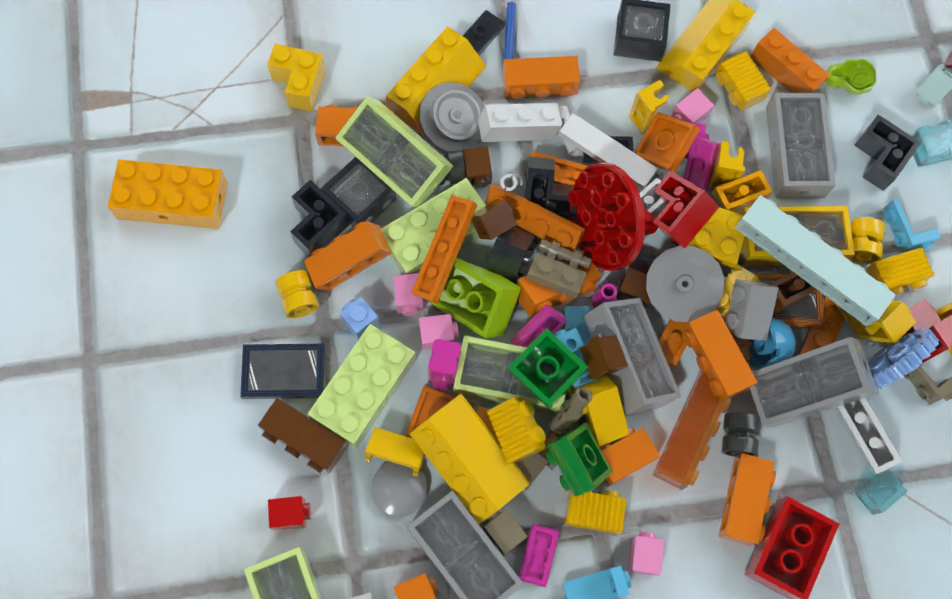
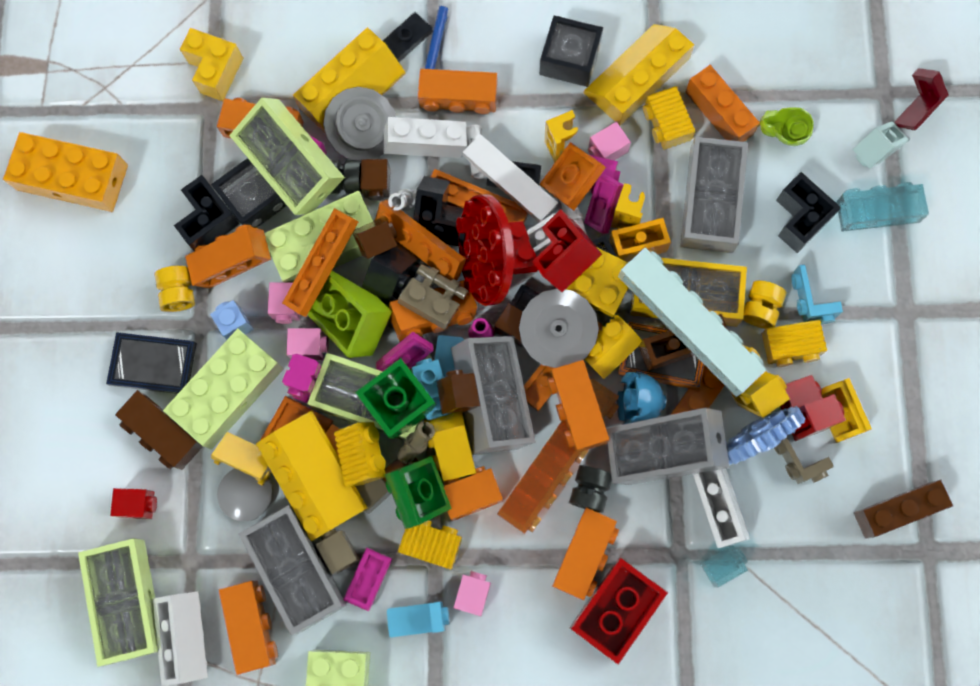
camera: 20 degrees right, 5 degrees up
(751, 309) = (619, 364): light grey brick -> none

